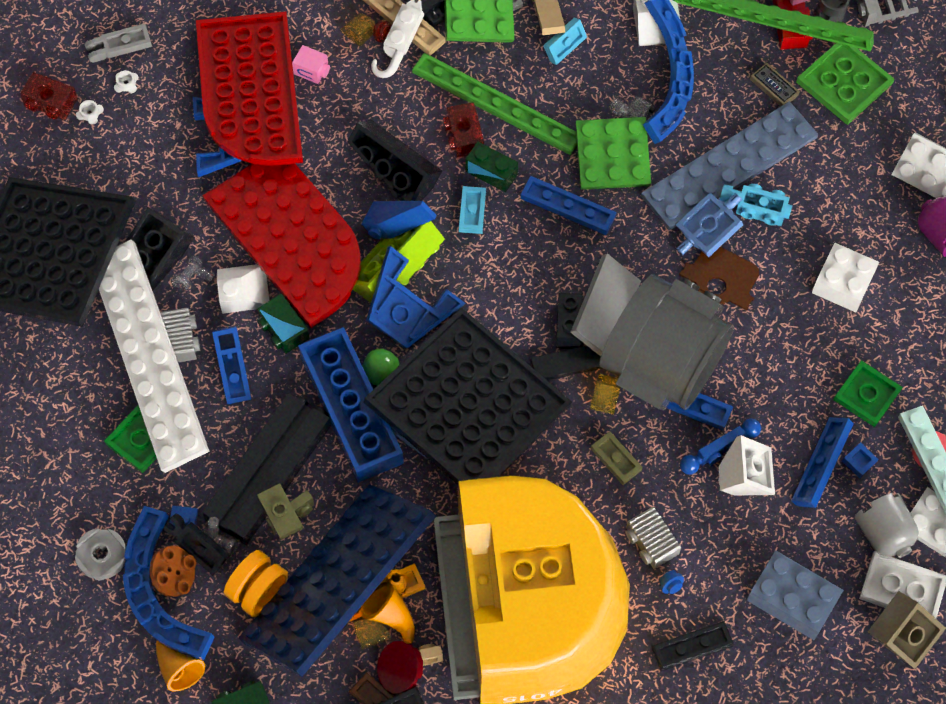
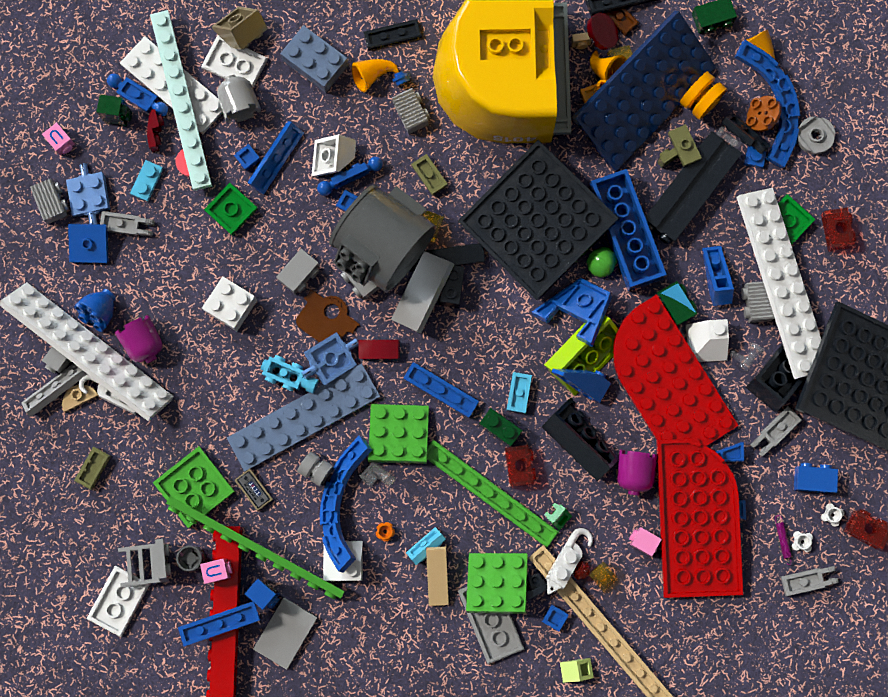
camera: 170 degrees left, 15 degrees up
(70, 418) = (834, 239): none -> clear red brick
(109, 144) = (815, 479): none -> blue brick
(147, 81) = (786, 552): none -> magenta piece
(158, 191) = (777, 429): none -> light grey hinge
(324, 133) = (636, 471): none -> magenta cylinder
(411, 83) = (559, 516): none -> green tile
(616, 49) = (385, 526): none -> orange plate
(646, 242) = (379, 349): none -> dark red slope
(709, 108) = (314, 468): none -> light grey wheel
(715, 587) = (370, 71): none -> light orange hat
(766, 323) = (298, 272): none -> light grey brick

